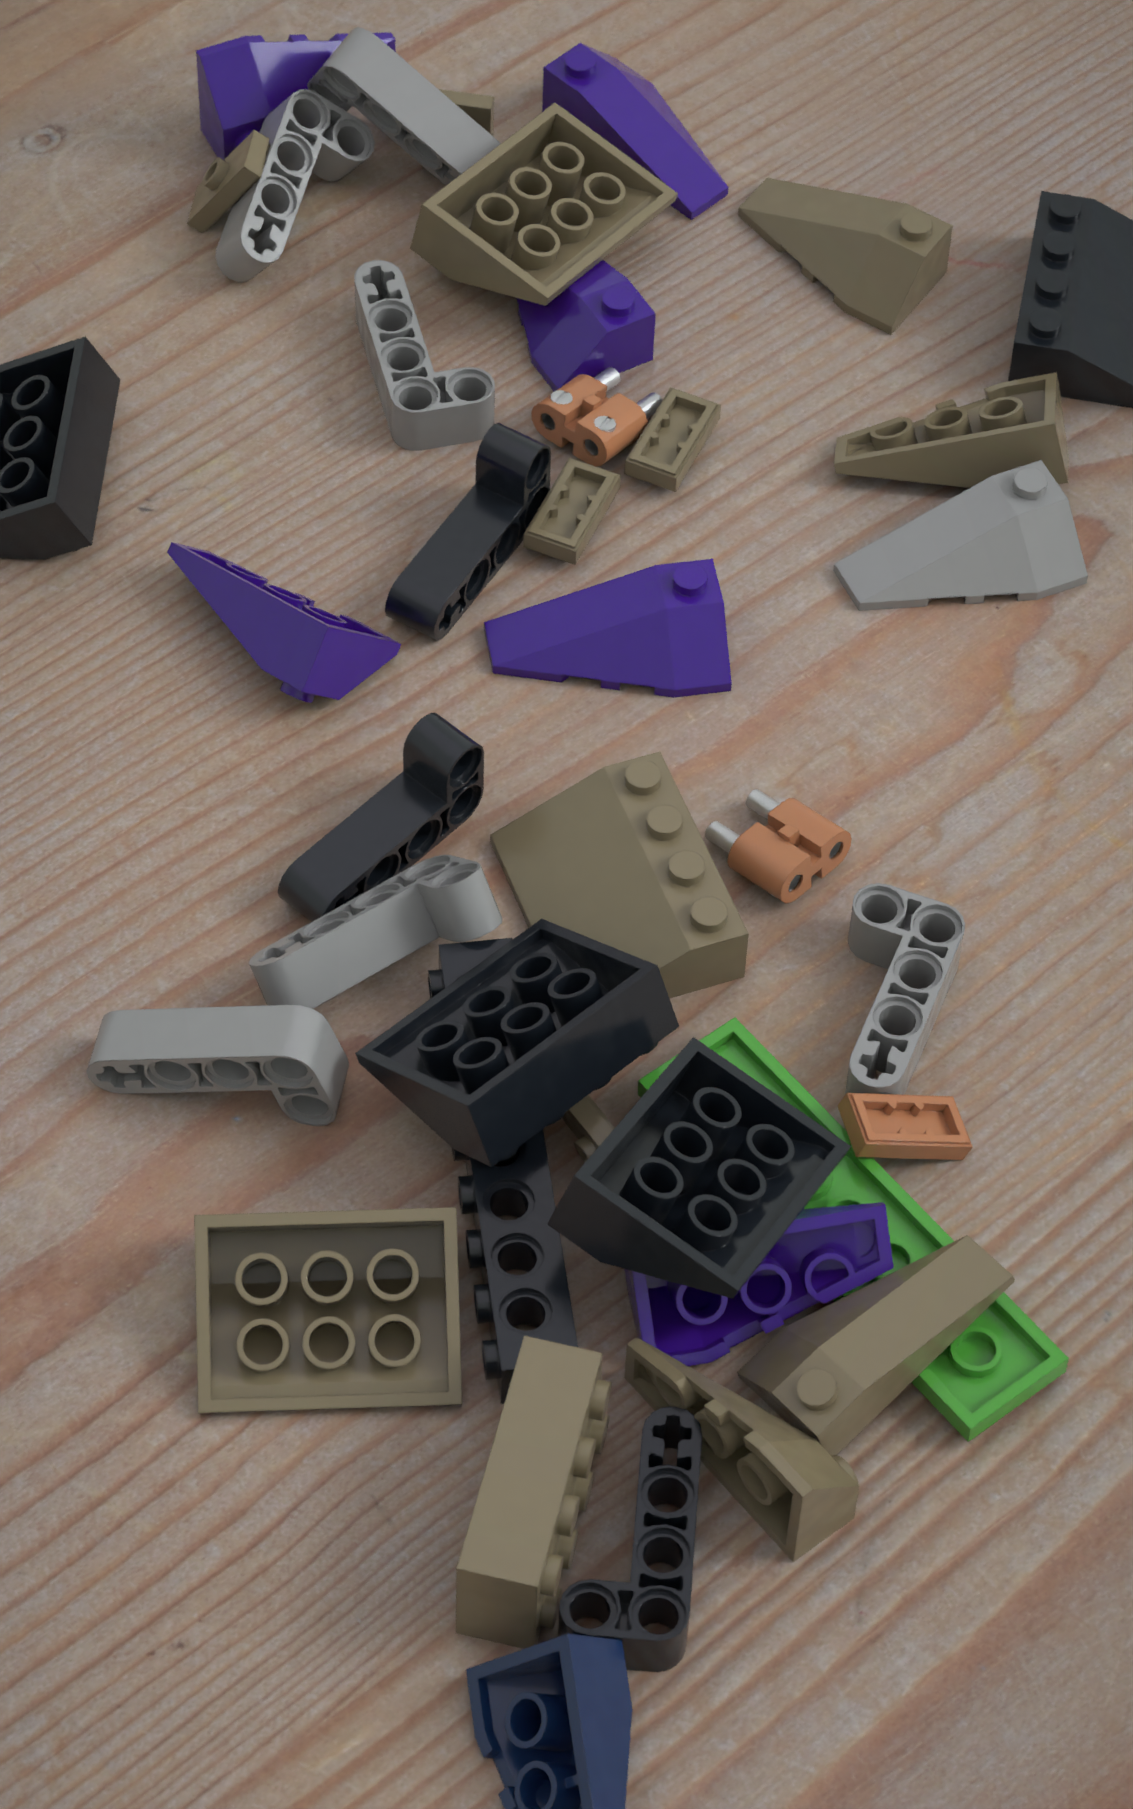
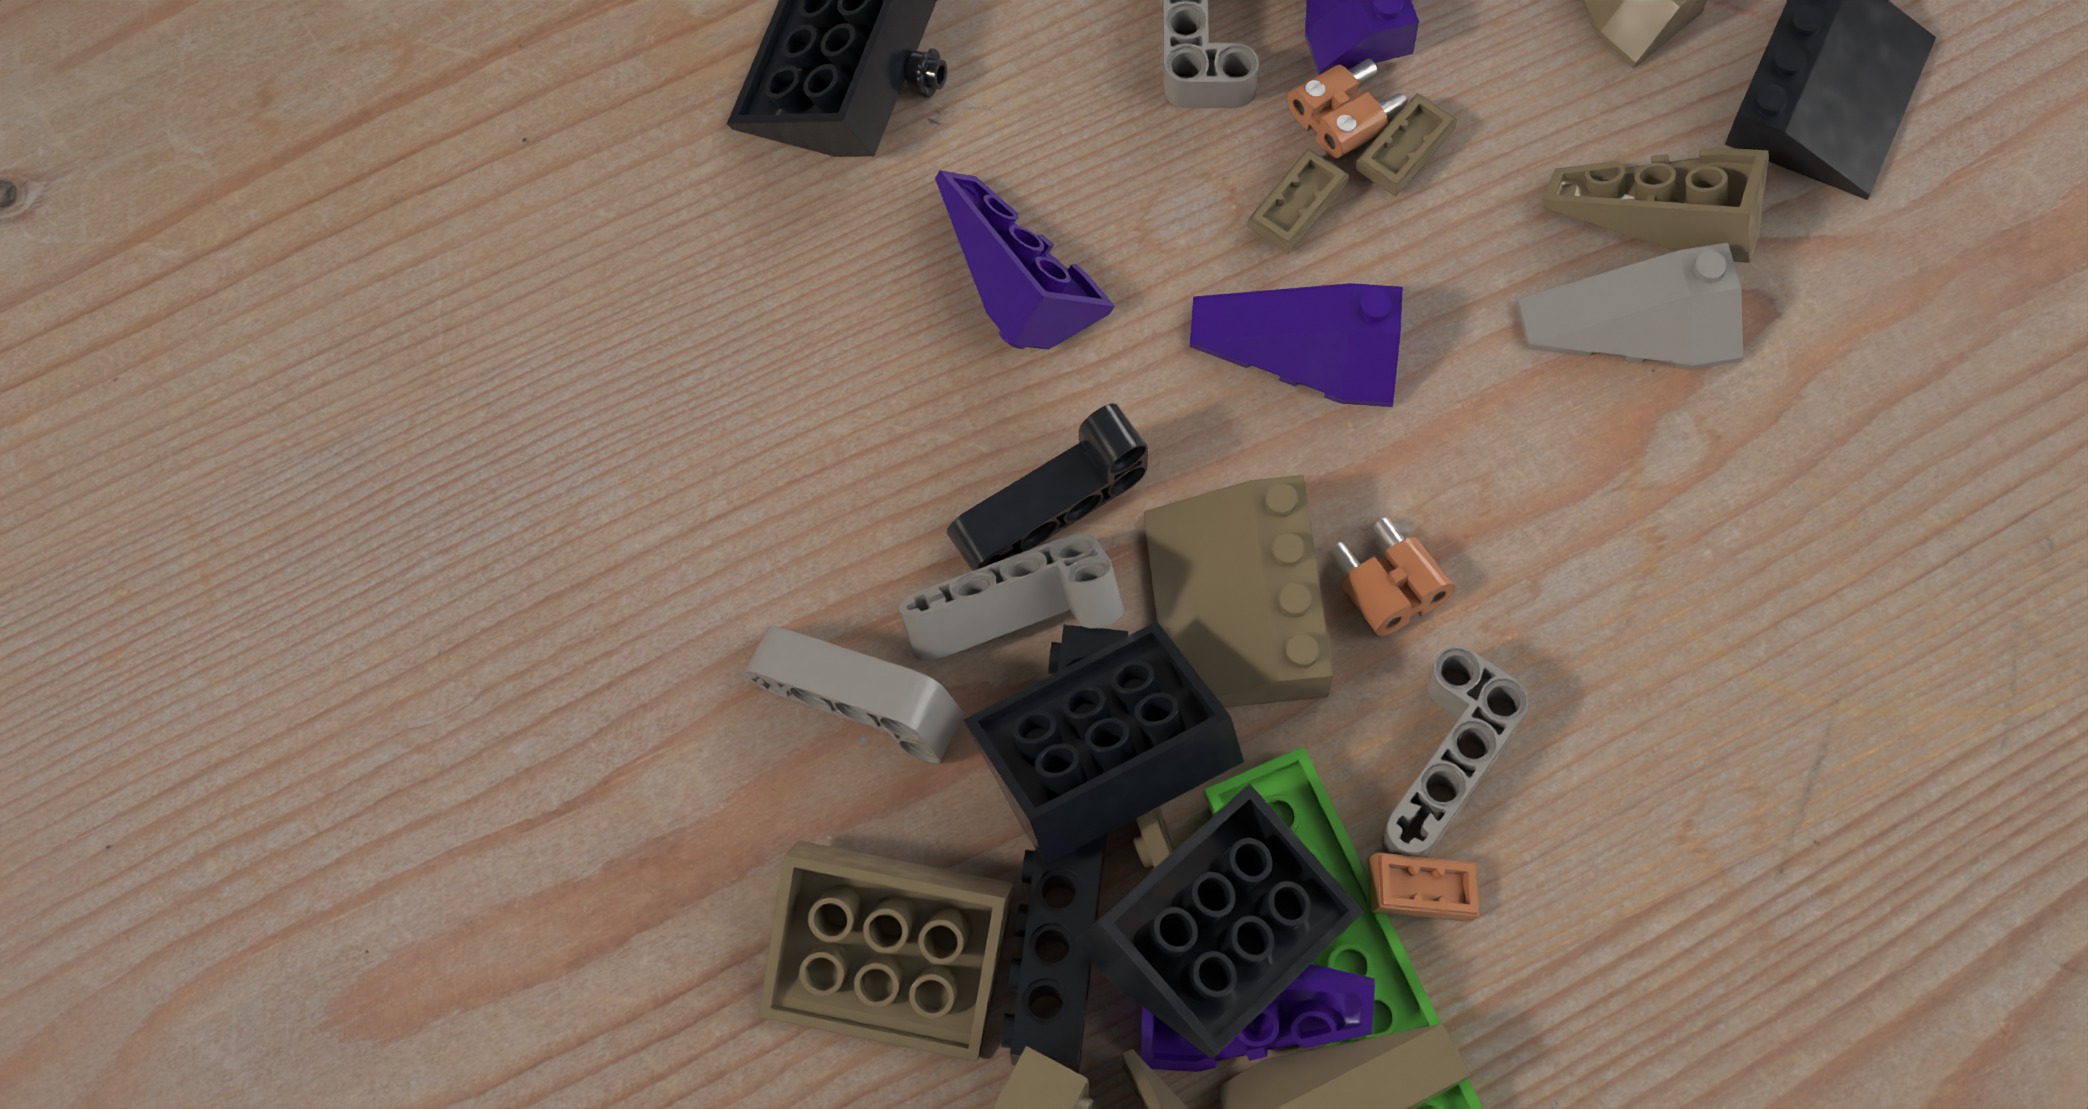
camera: 20 degrees right, 15 degrees up
(126, 457) = (926, 72): none -> black plate
(476, 535) = (1204, 215): black beam -> none

